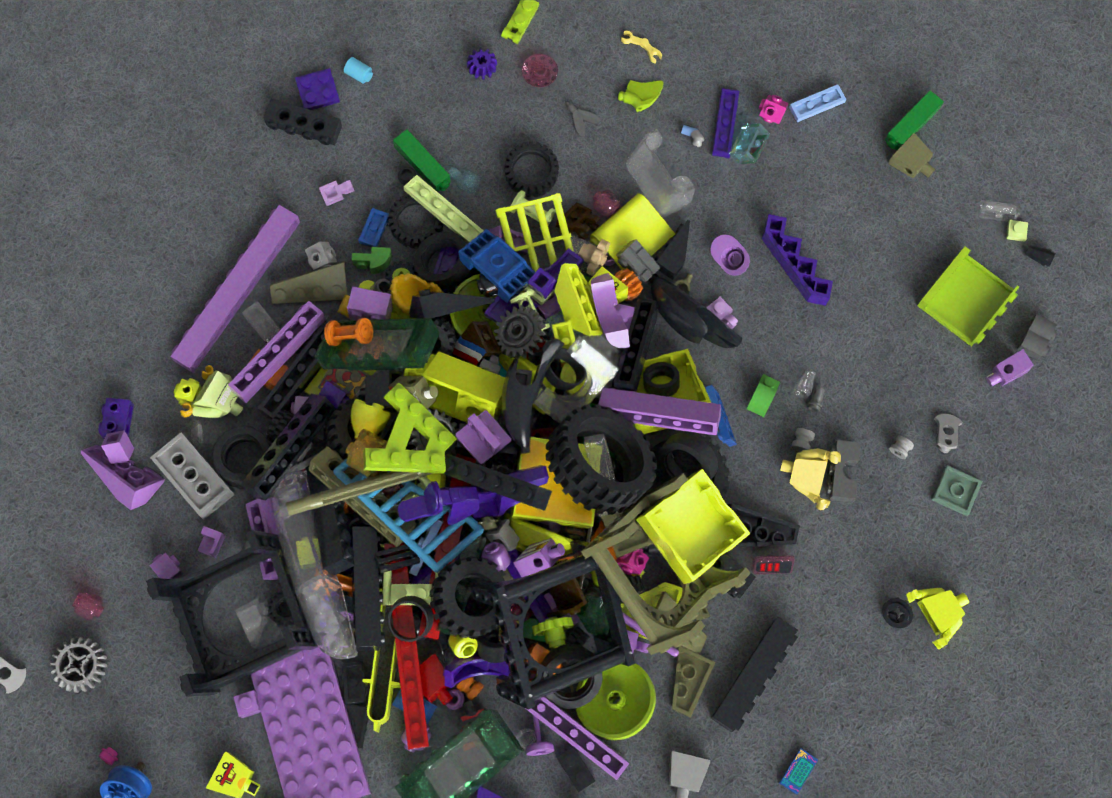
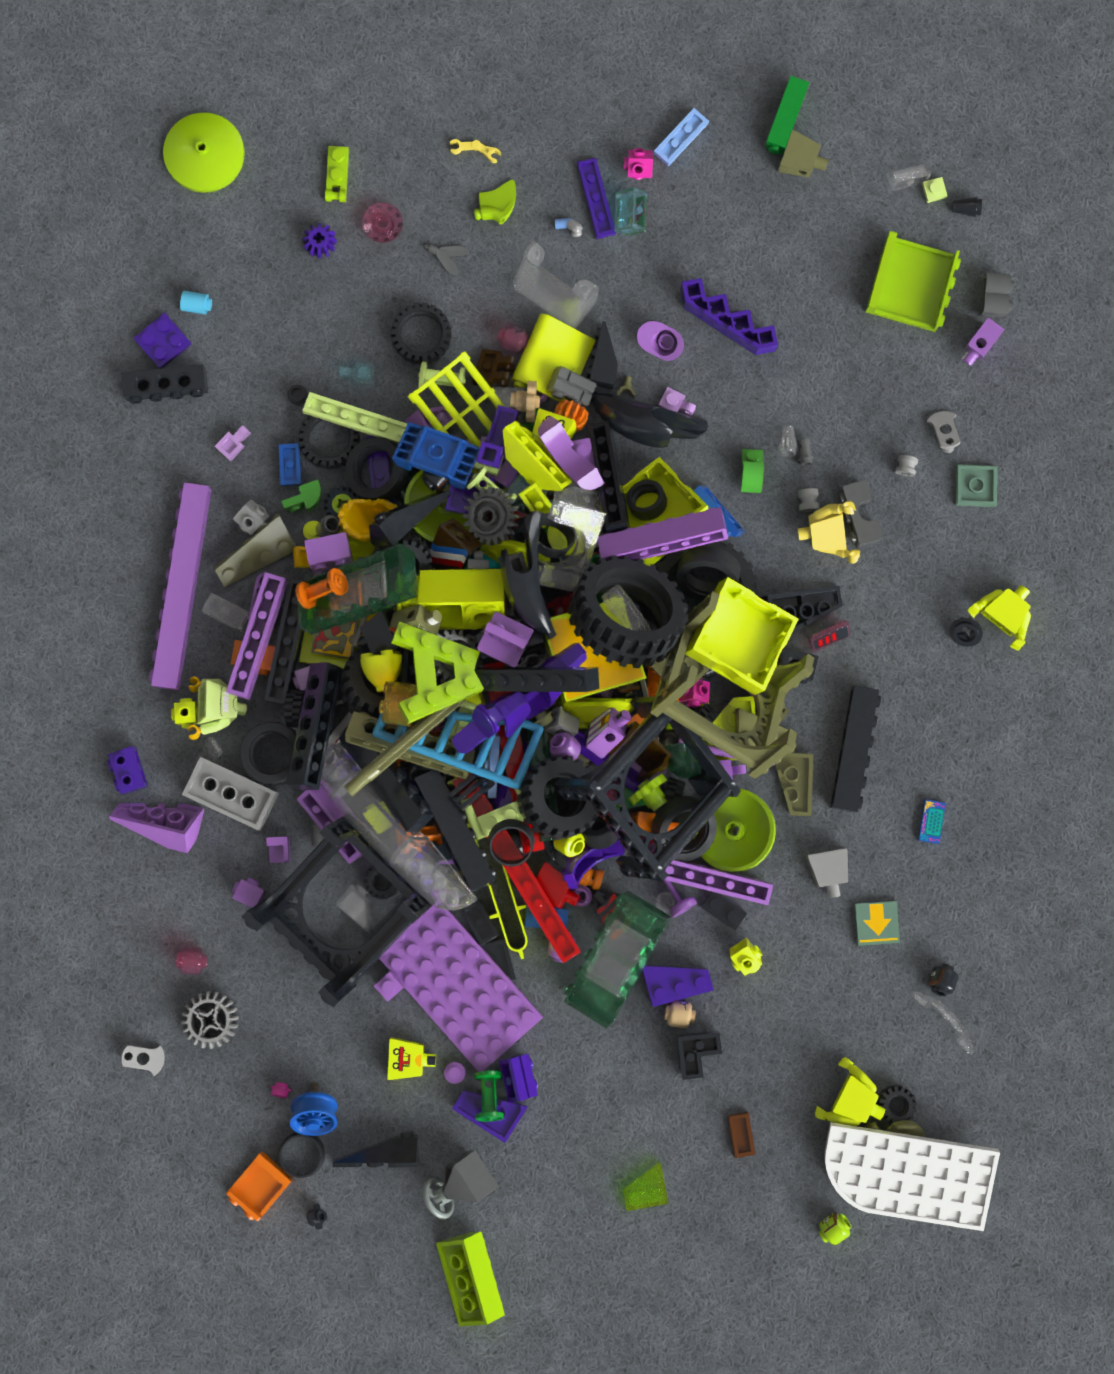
camera: 25 degrees left, 10 degrees up
(117, 447) = (144, 797): medium lavender brick -> none
(335, 393) = (333, 653): dark purple brick -> none
(422, 161) = (306, 373): green brick -> none

